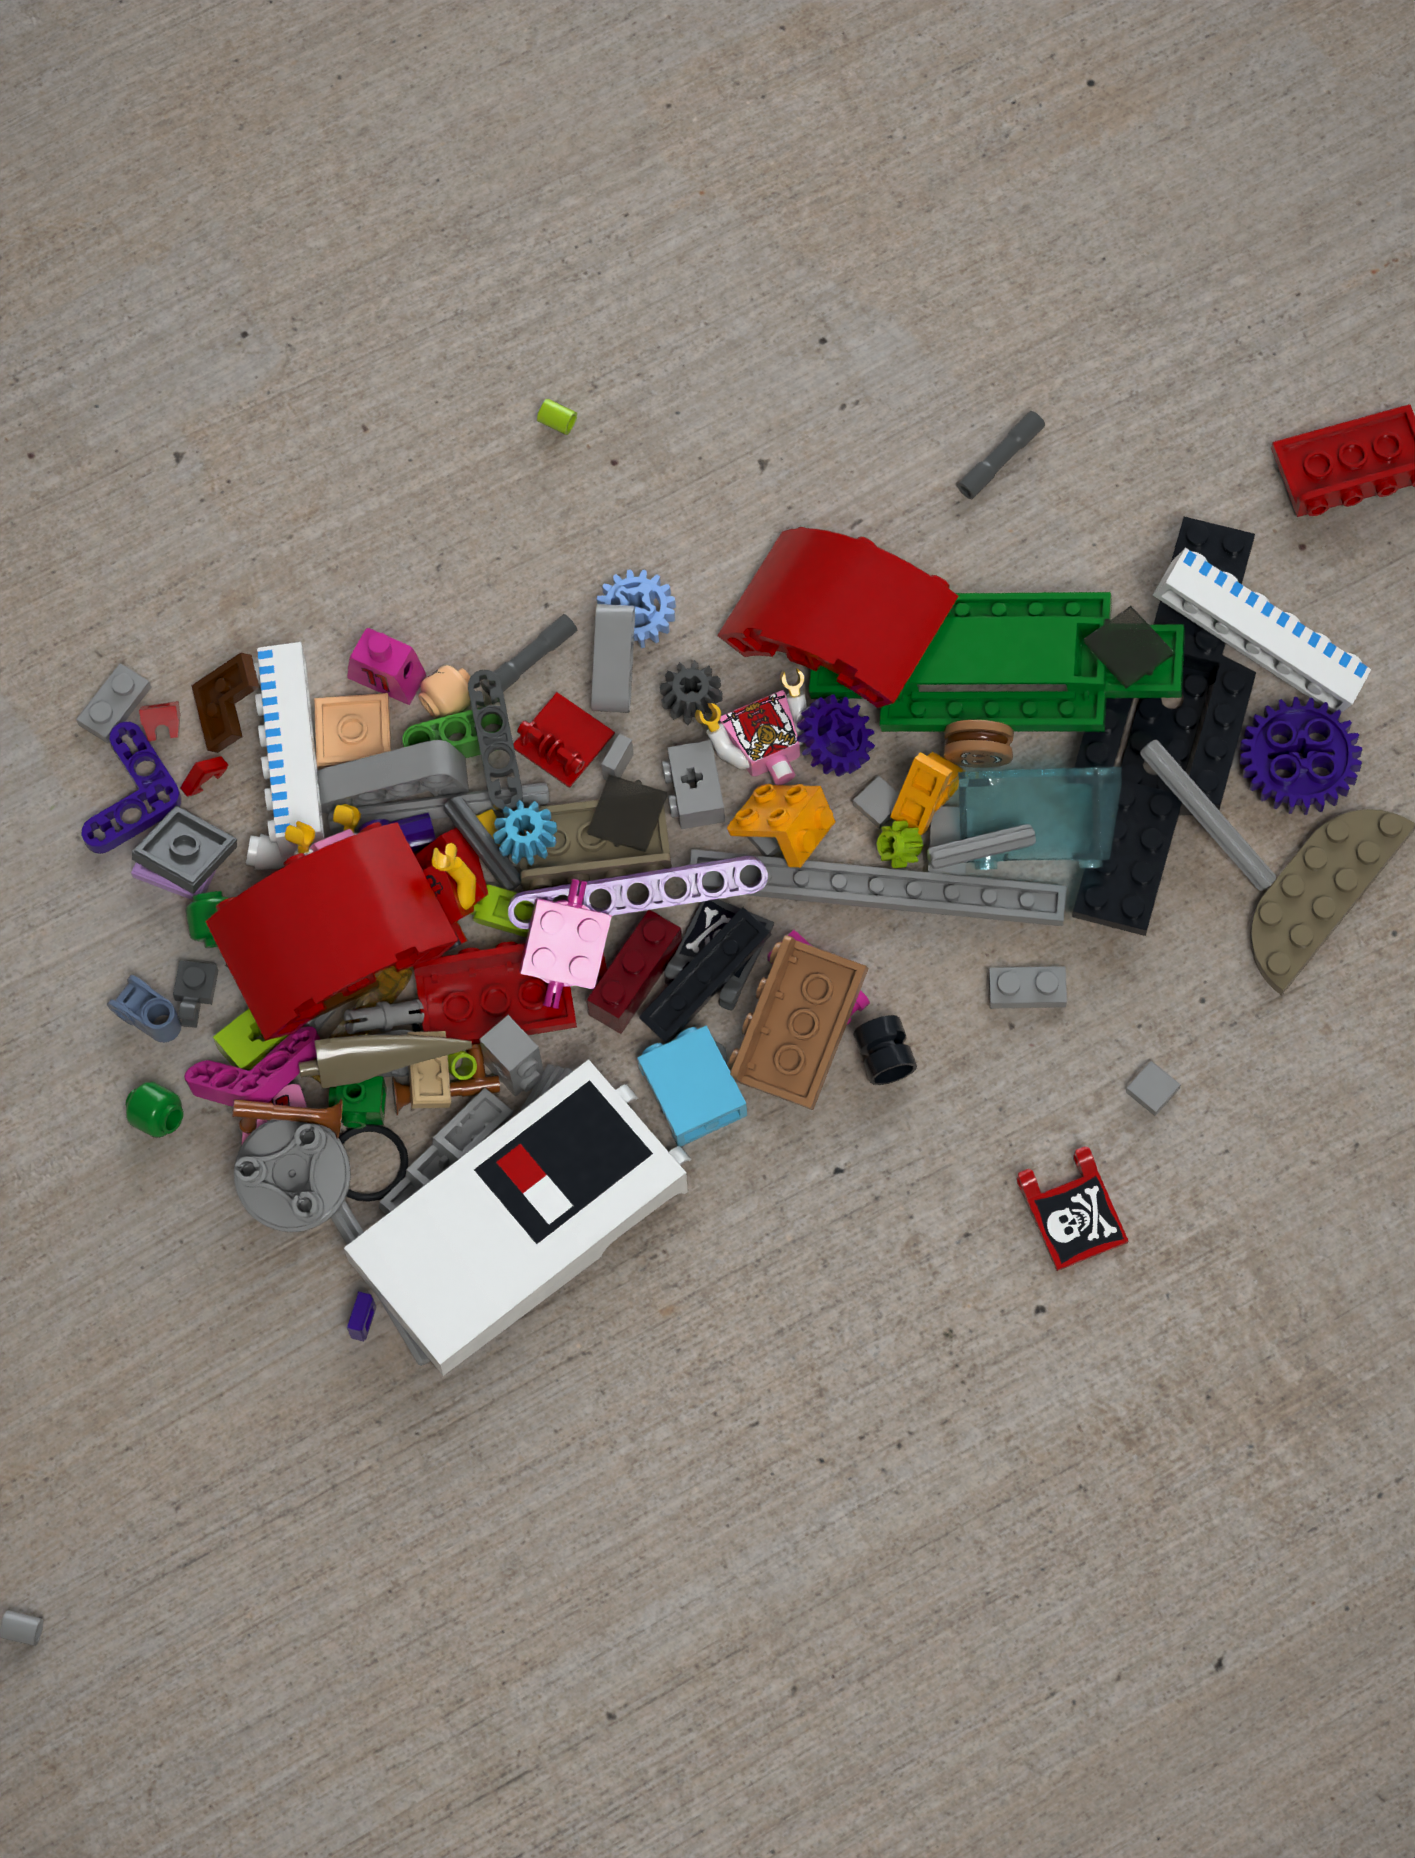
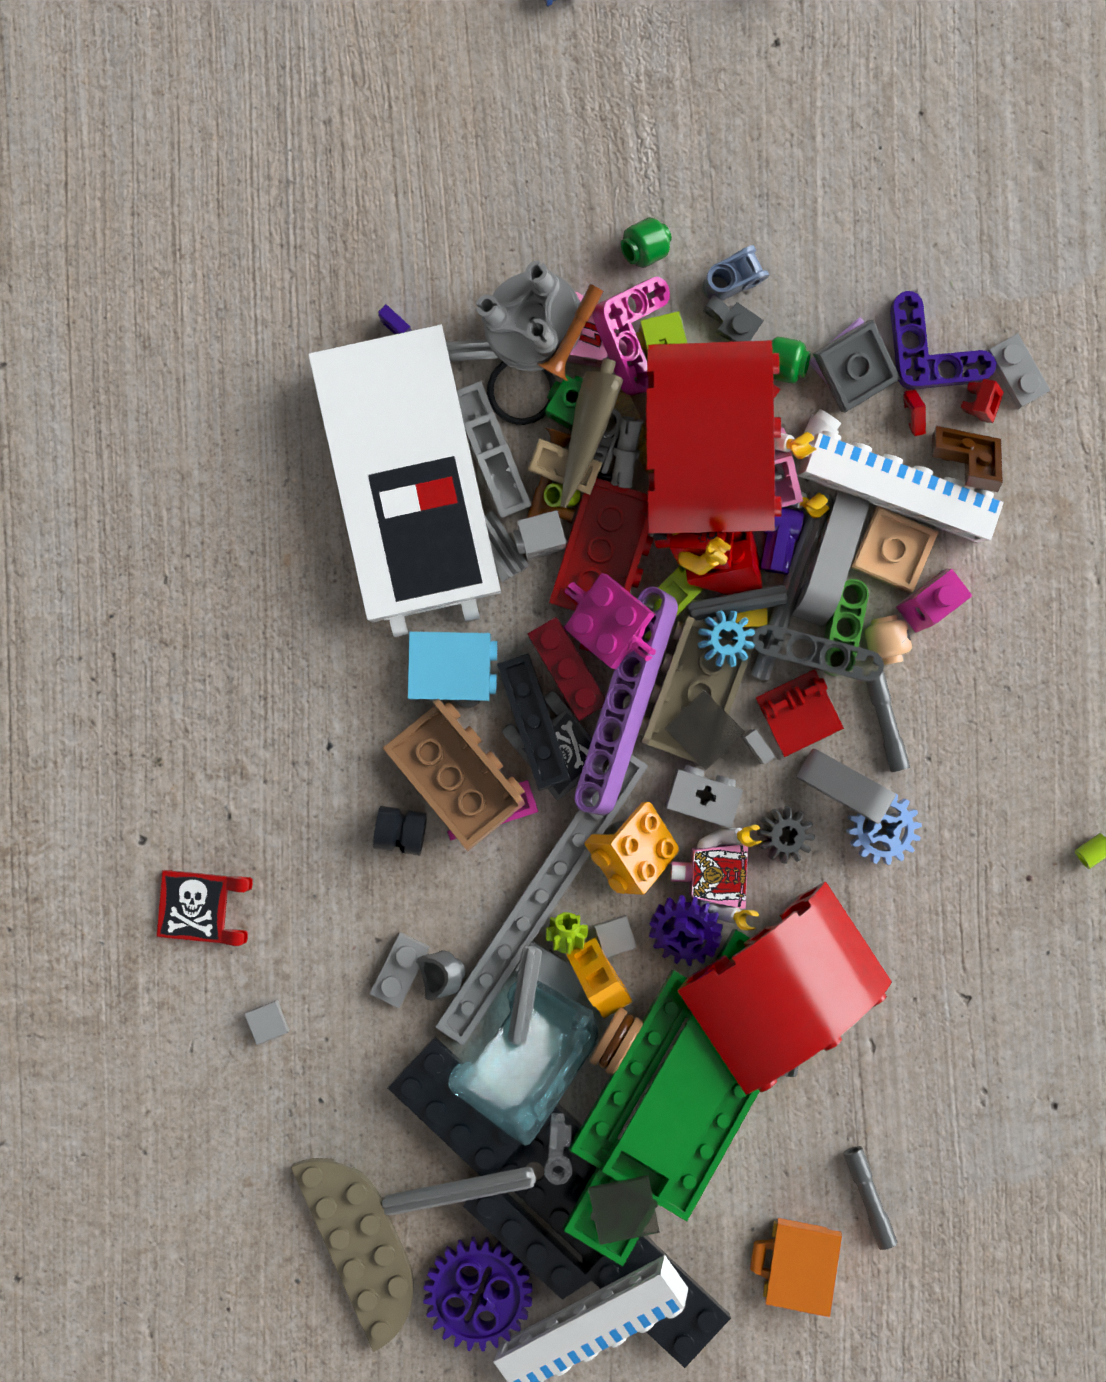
camera: 105 degrees right, 20 degrees up
(1008, 940) = (441, 974): none -> dark grey piece
(1099, 743) = (559, 1137): none -> clear plate
(1102, 483) = (800, 1267): none -> orange piece

